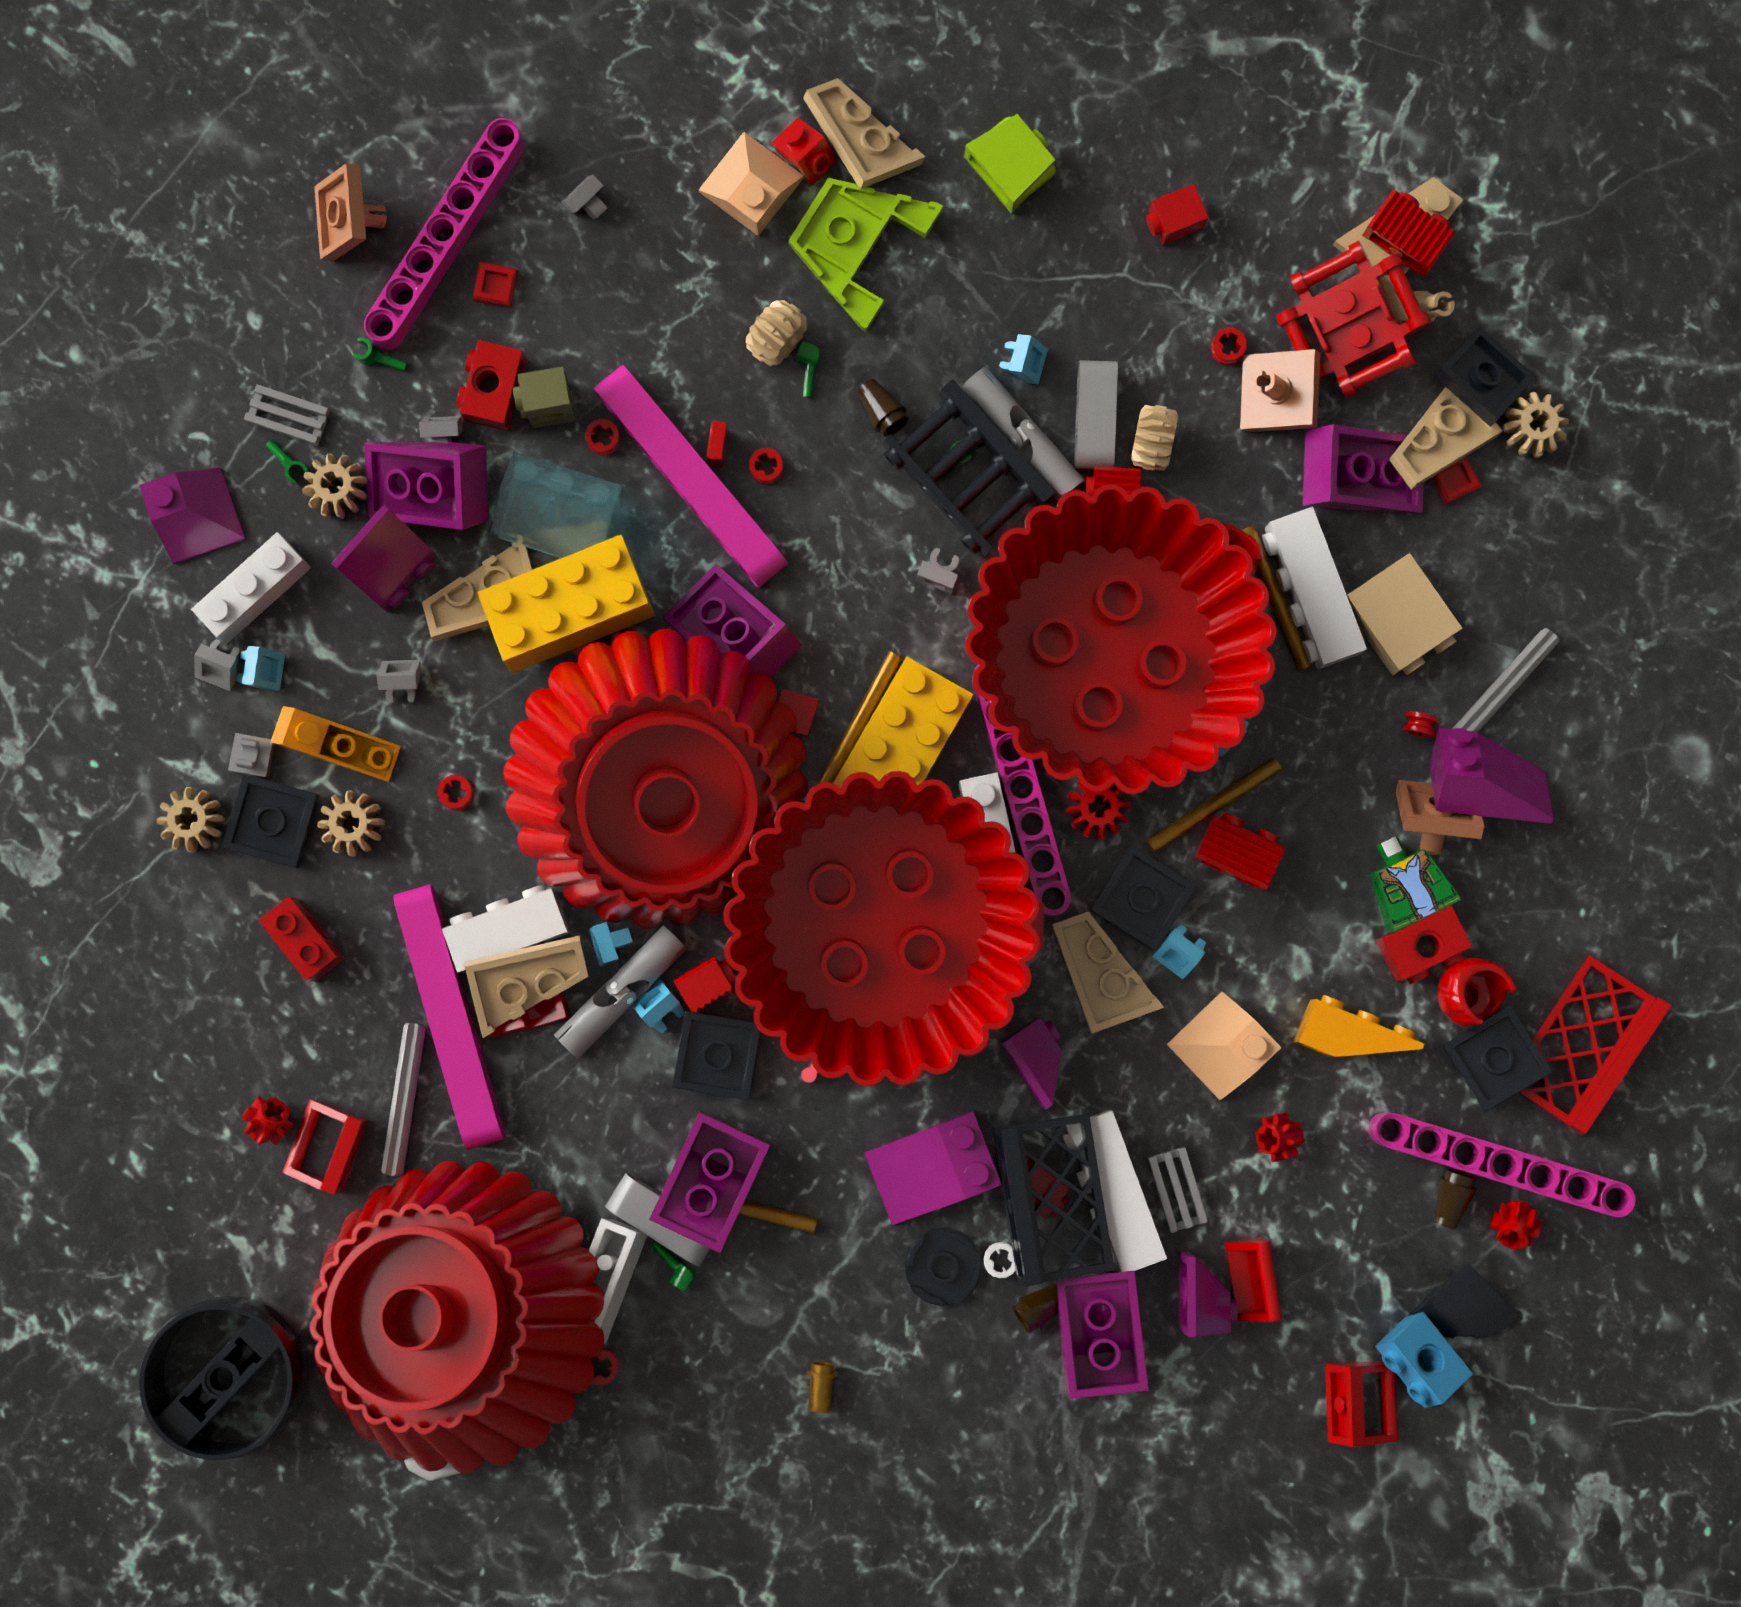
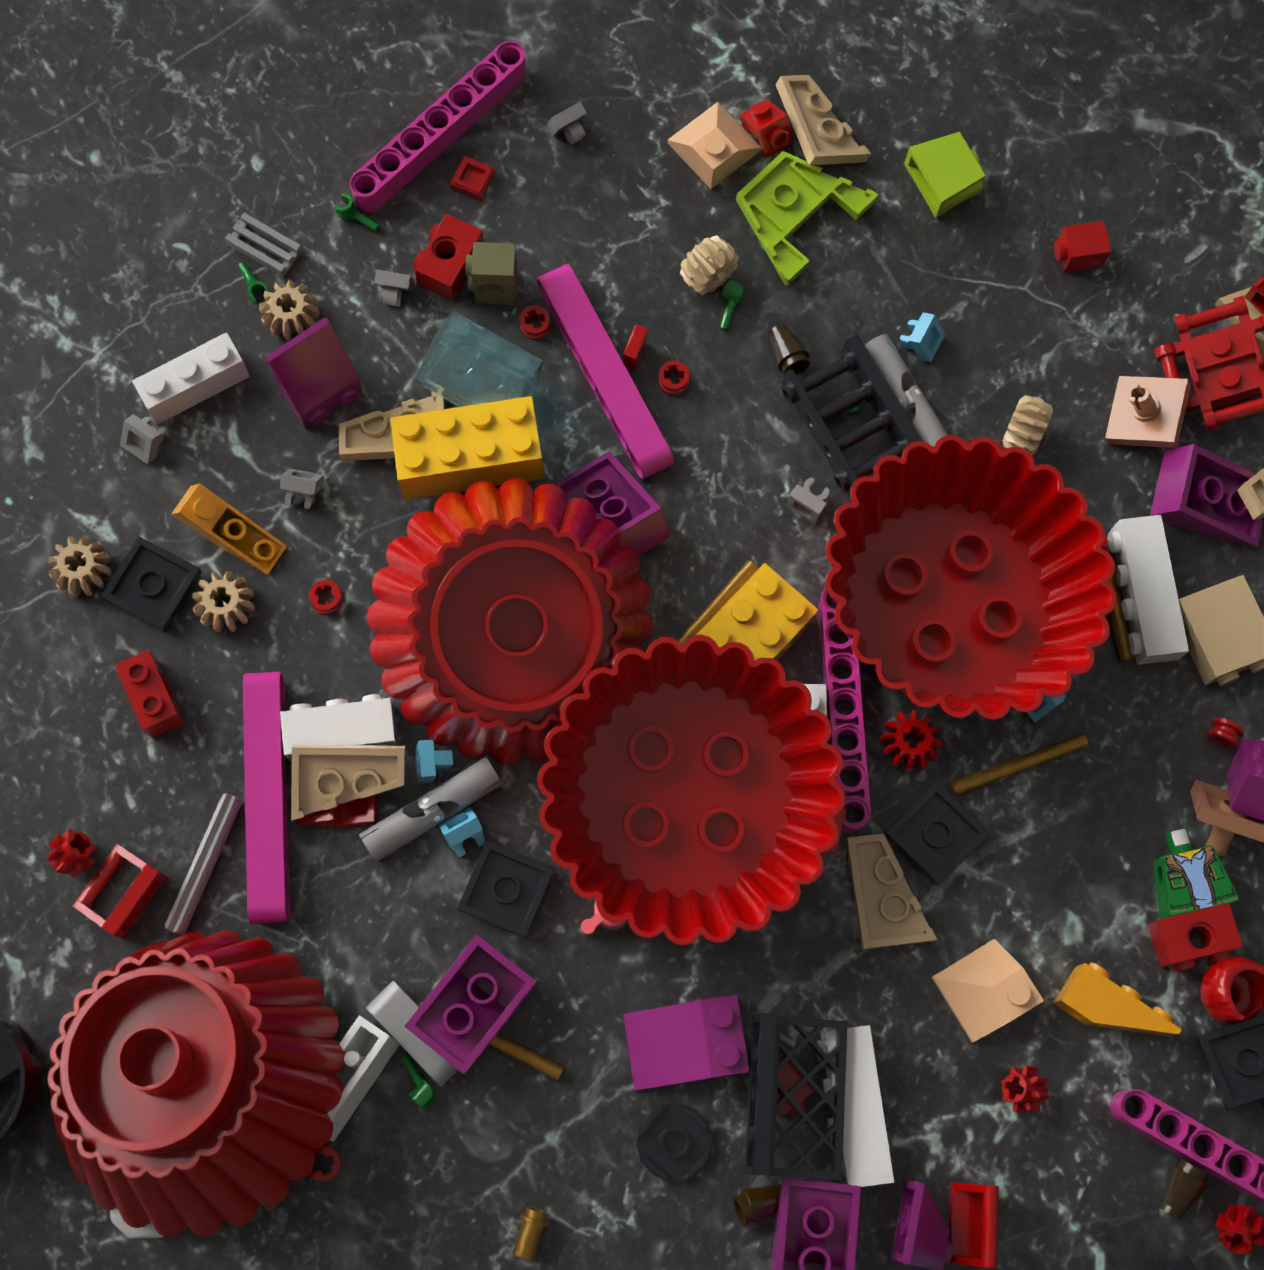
camera: 10 degrees right, 10 degrees down
(192, 513) = (157, 305): magenta slope -> none
(251, 755) = (151, 523): light grey tile -> none
(262, 668) = (181, 449): medium azure tile -> none
(342, 212) = (356, 88): nougat tile -> none
(428, 482) = (374, 322): magenta slope -> none
(706, 984) = (512, 817): red brick -> none
(803, 708) = (660, 595): red tile -> none
(989, 1263) = (719, 1149): white bush -> none
(1036, 1058) = (806, 959): magenta slope -> none
(1095, 414) = (978, 394): light grey beam -> none
(1179, 953) = (961, 892): medium azure tile -> none
(1186, 1221) = (919, 1153): light grey tile -> none
(1240, 345) = (1104, 356): red bush -> none
(1240, 852) = (1036, 811): red brick -> none

